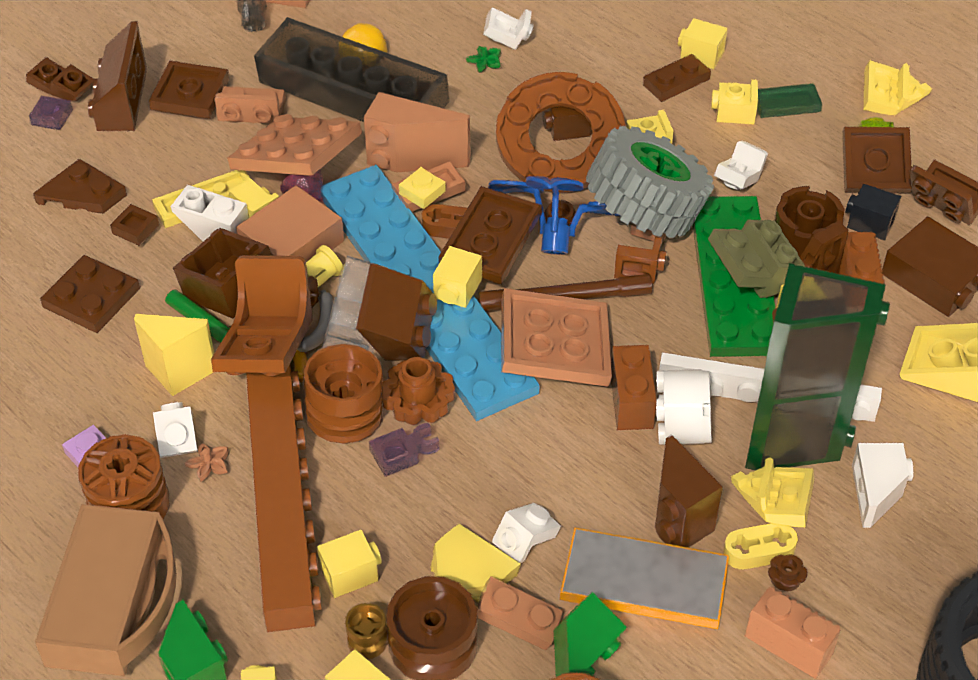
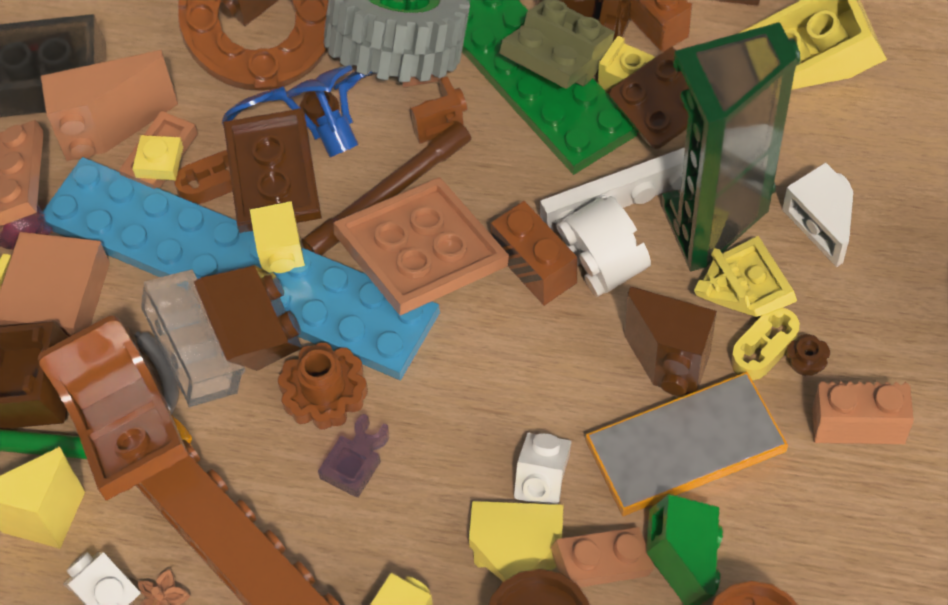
camera: 30 degrees left, 10 degrees up
(324, 265) = (116, 301): light yellow bush -> none
(343, 393) = (256, 436): dark orange wheel -> none

